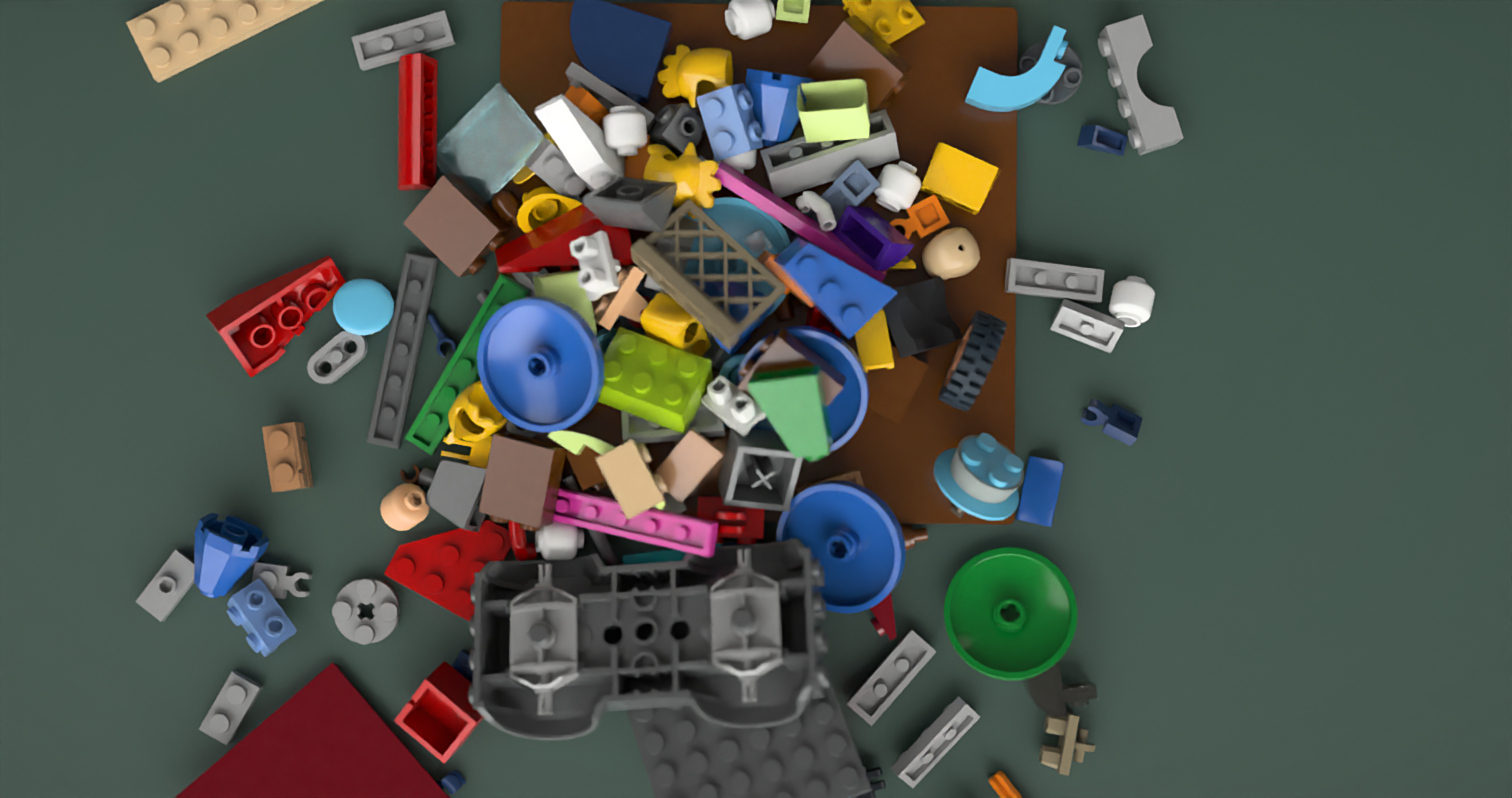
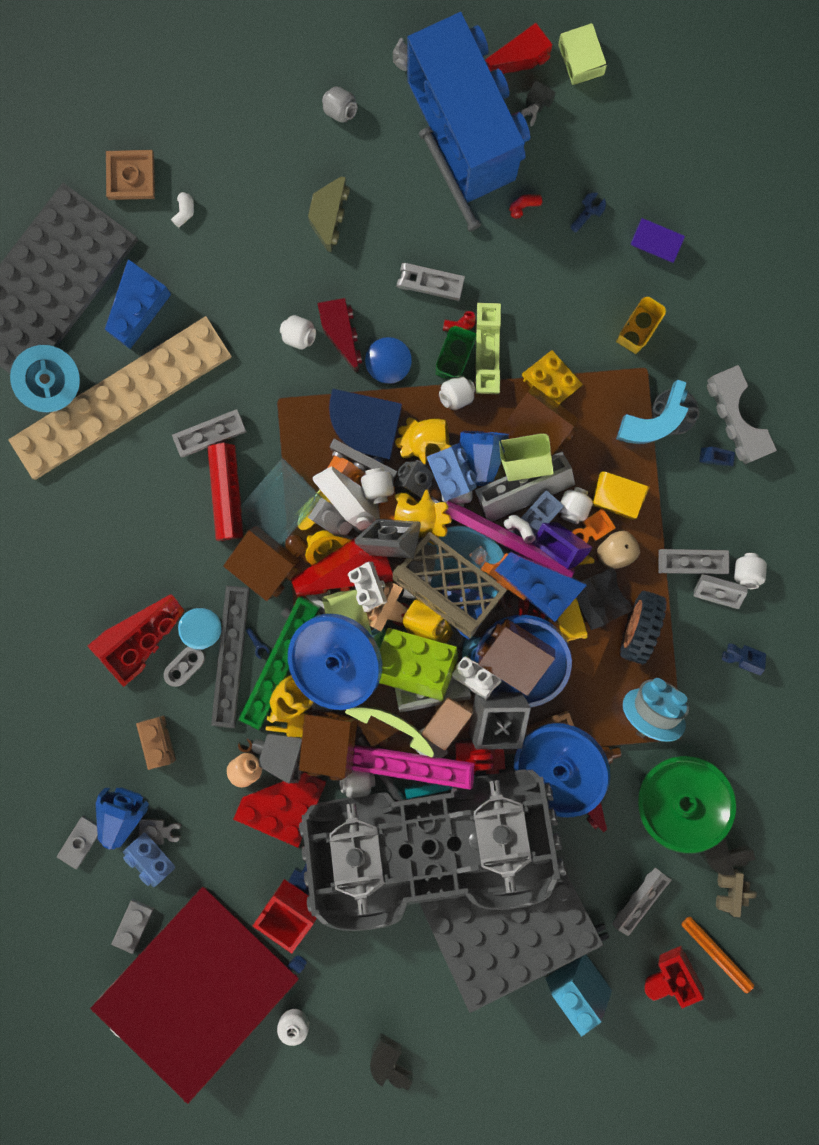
camera: 10 degrees left, 0 degrees up
(348, 610) = (223, 860): light grey plate -> none
(519, 543) = (328, 787): red arm -> none
(632, 478) = (409, 738): tan brick -> none
(796, 408) = (522, 676): slope -> none
(891, 677) = (604, 857): light grey plate -> none
(1040, 491) = (700, 713): blue slope -> none

